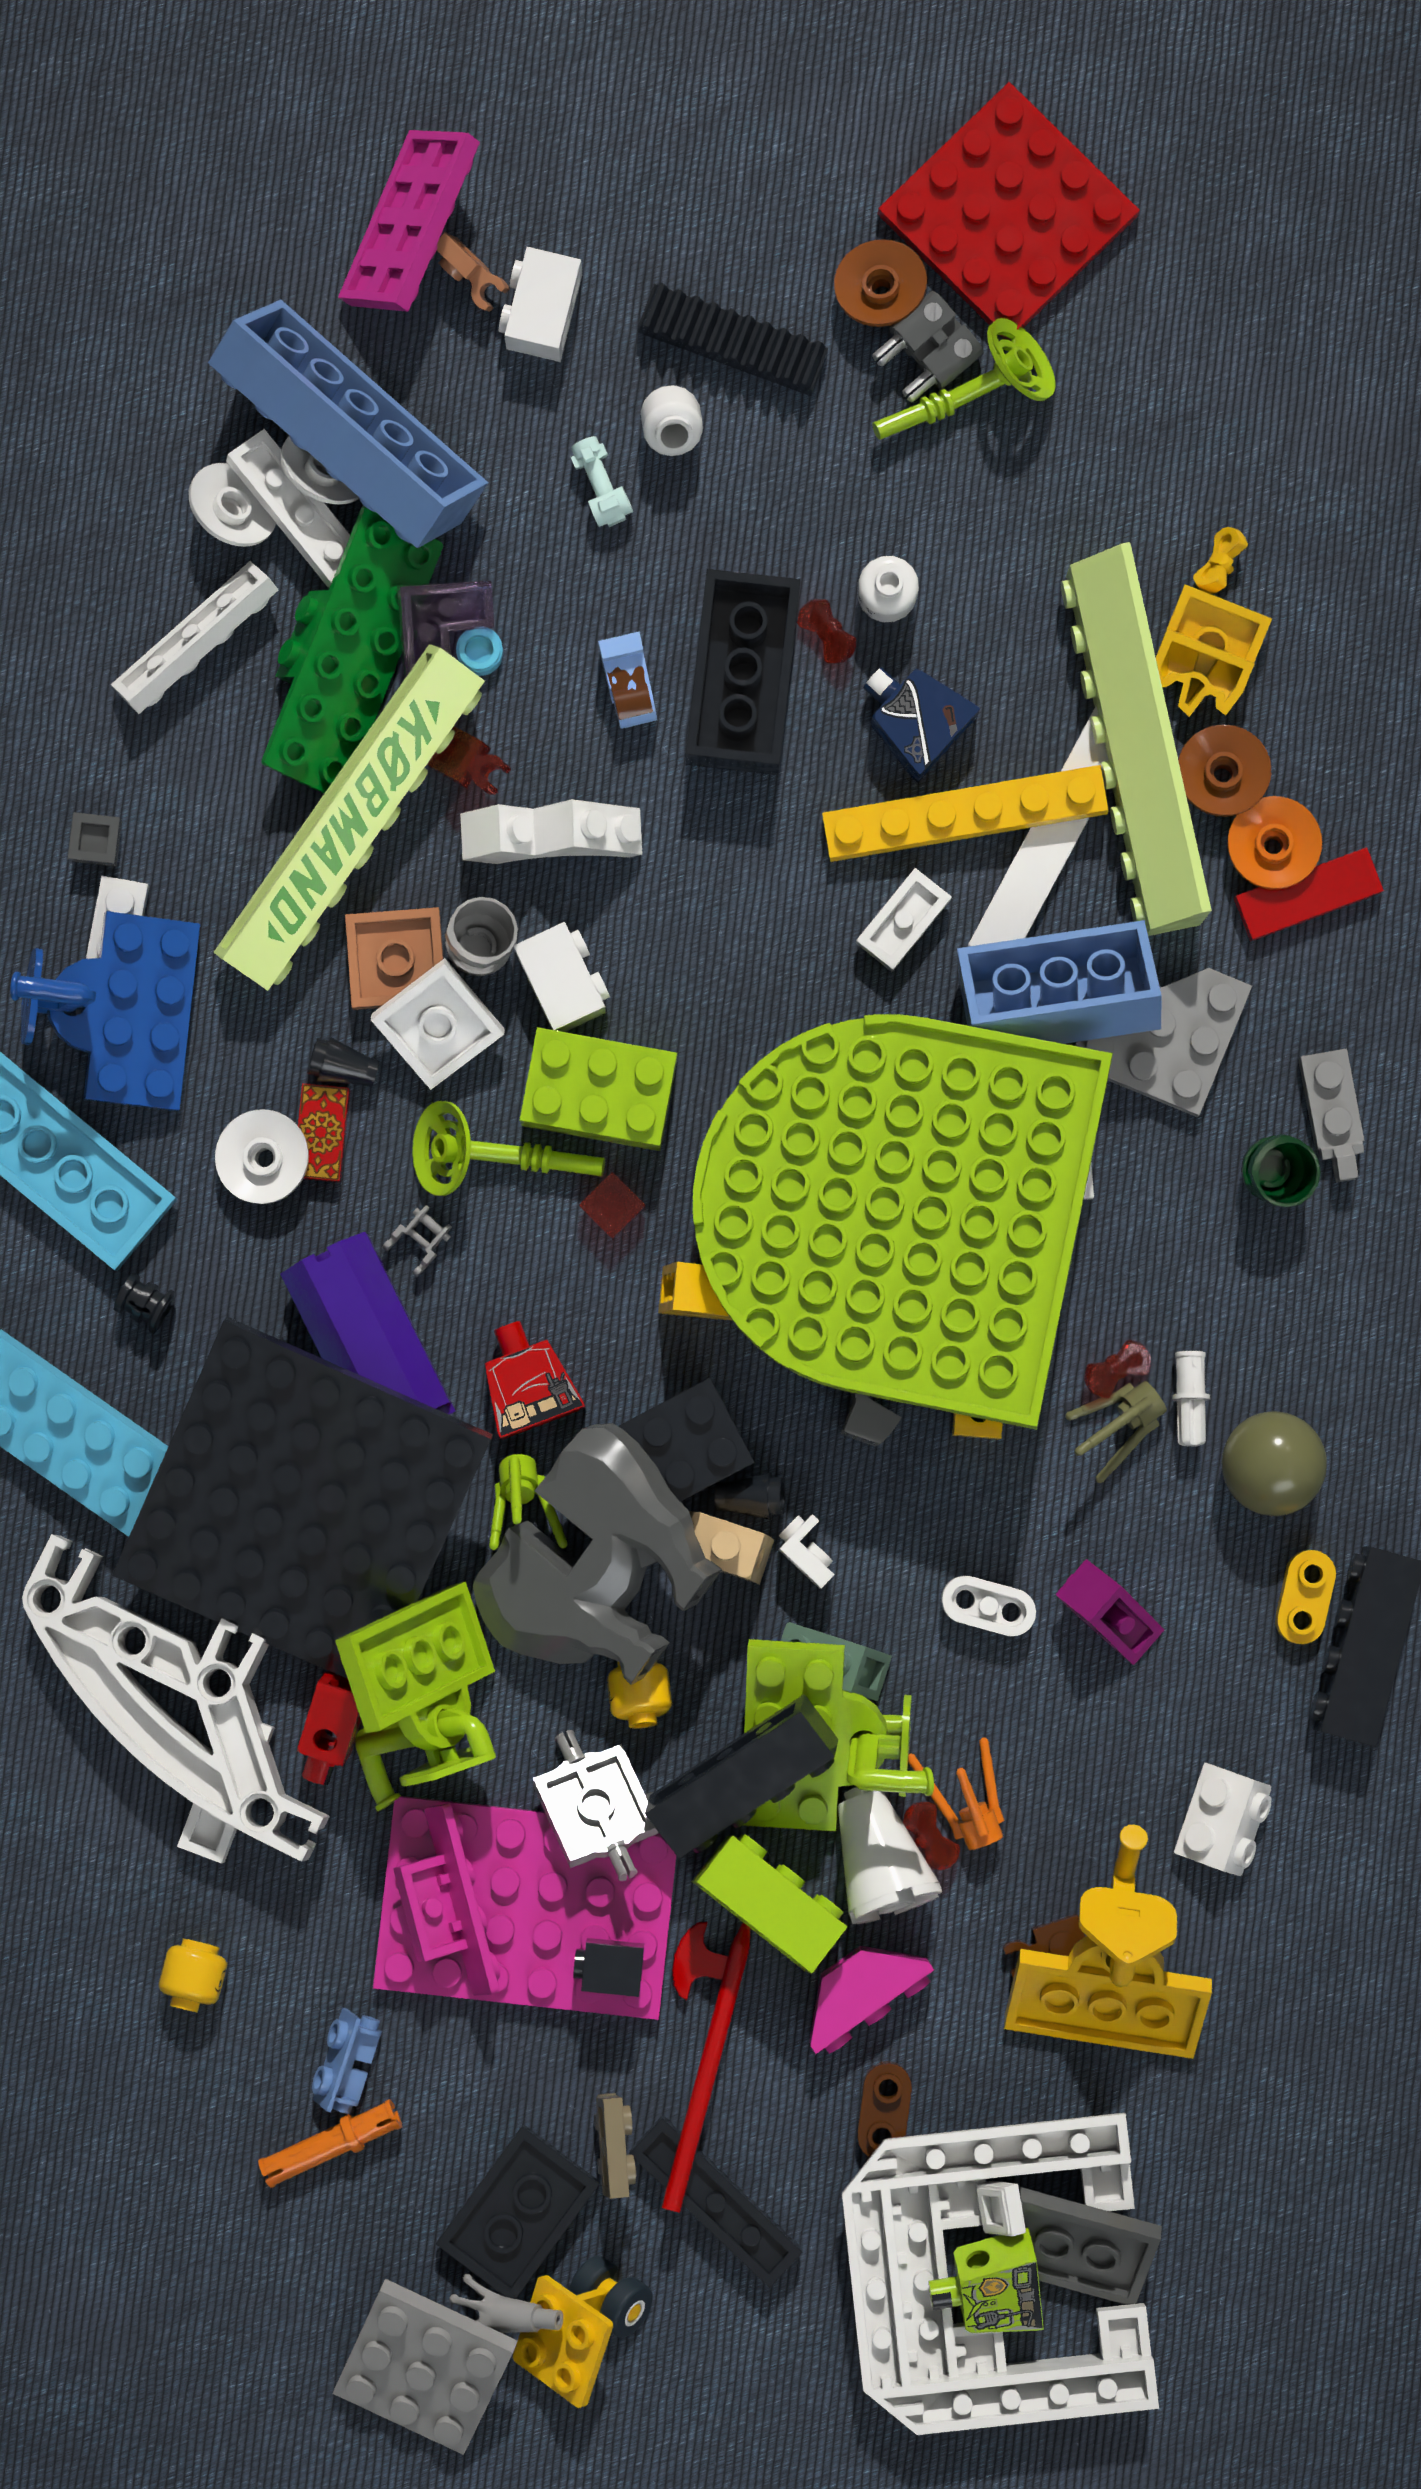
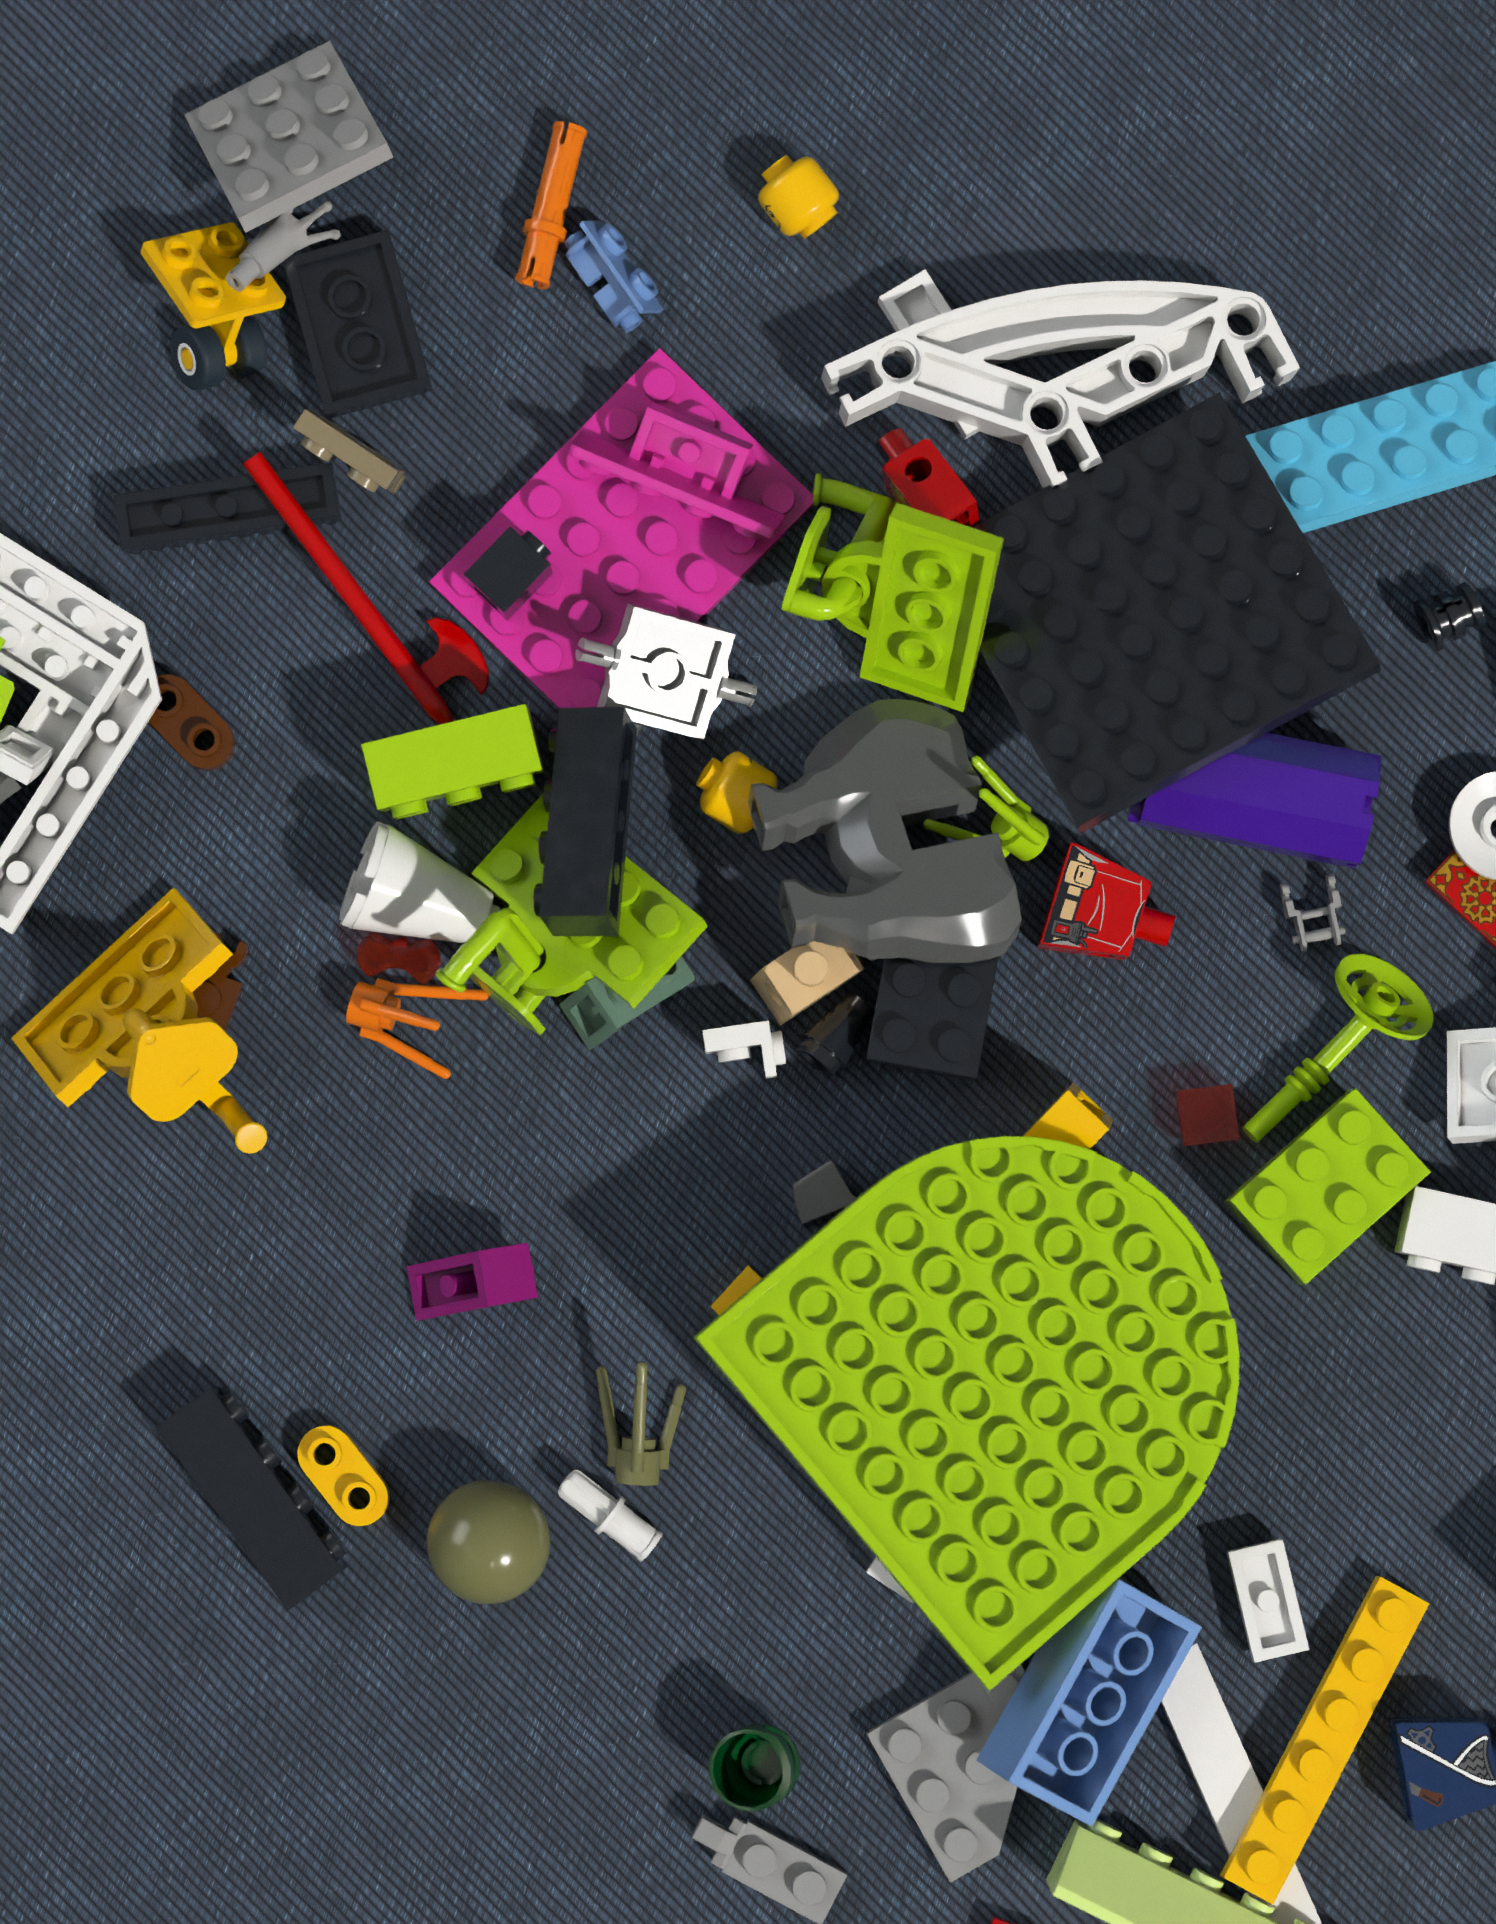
camera: 135 degrees right, 0 degrees up
(860, 1990) = (311, 785): dark pink slope -> none
(988, 1605) = (565, 1173): white plate -> none
(1103, 1376) = (688, 1487): clear red piece -> none
(1224, 1820) = (201, 1236): white bracket -> none

